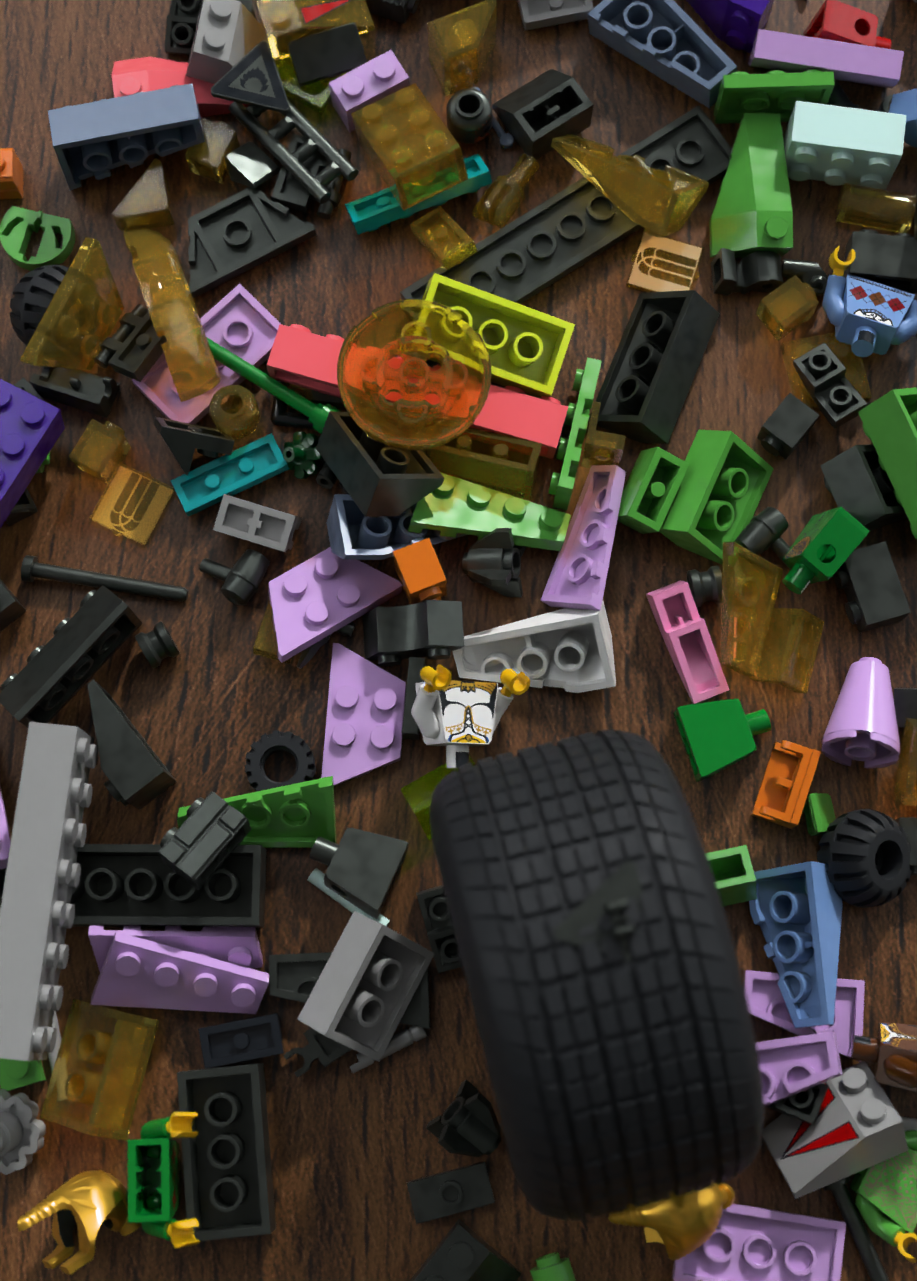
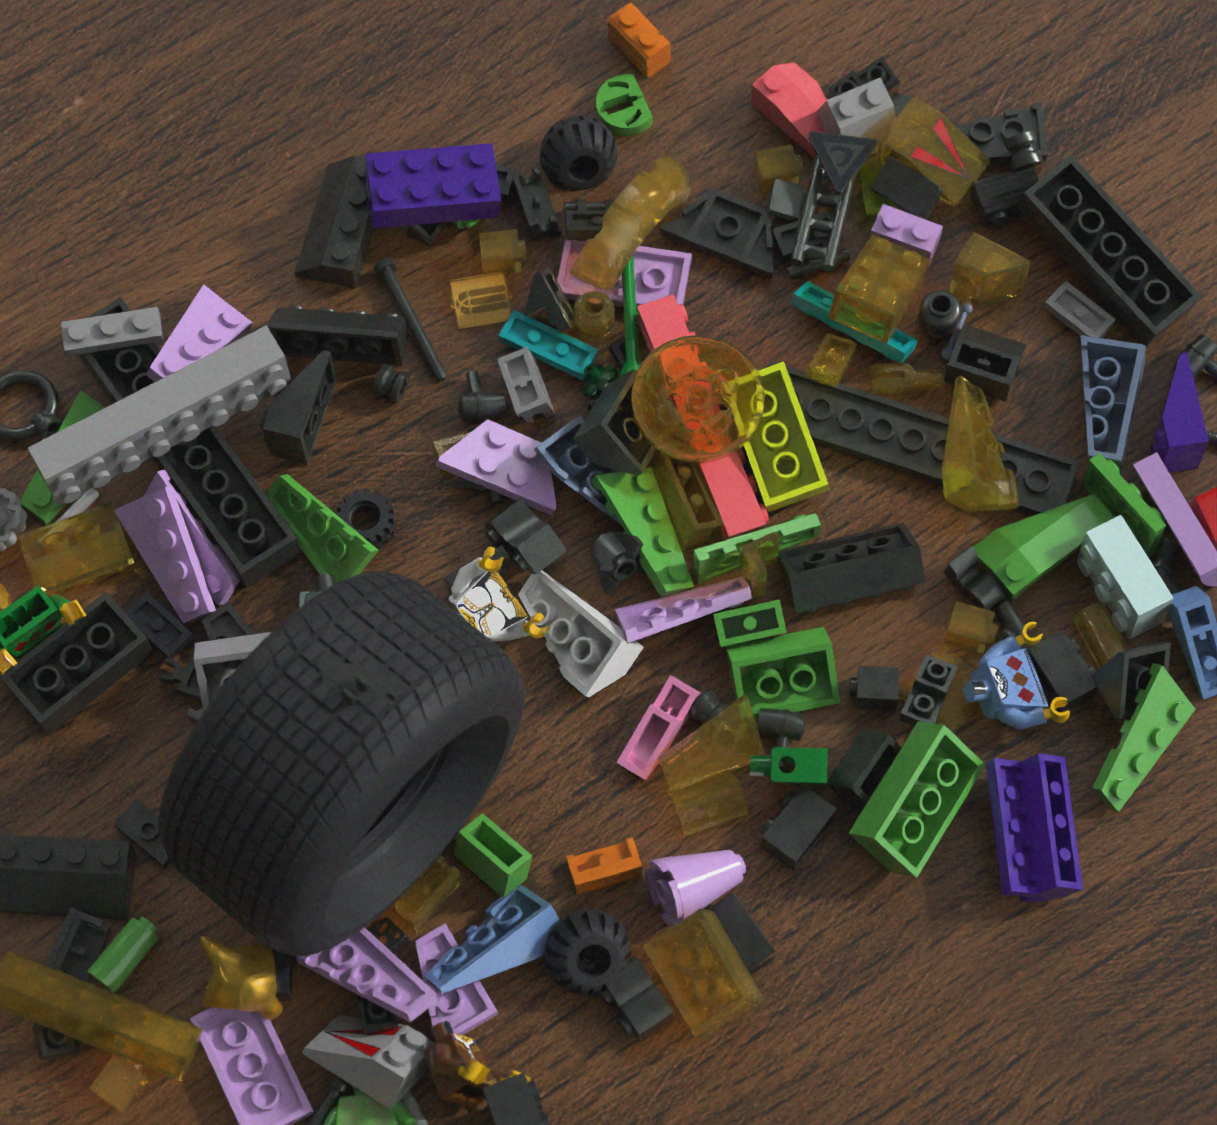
camera: 55 degrees right, 10 degrees down
(78, 315) = (582, 169): clear yellow wing -> none
(124, 131) = (737, 101): sand blue wedge -> none
(147, 202) = (705, 155): clear yellow slope -> none
(203, 839) = (272, 496): pearl dark grey brick -> none
(361, 717) = (437, 546): lavender wing -> none
(420, 572) = (568, 510): orange brick -> none
(664, 265) = (937, 527): piece -> none
(718, 734) = (604, 793): green torso -> none
(818, 813) = (601, 898): bright green slope -> none

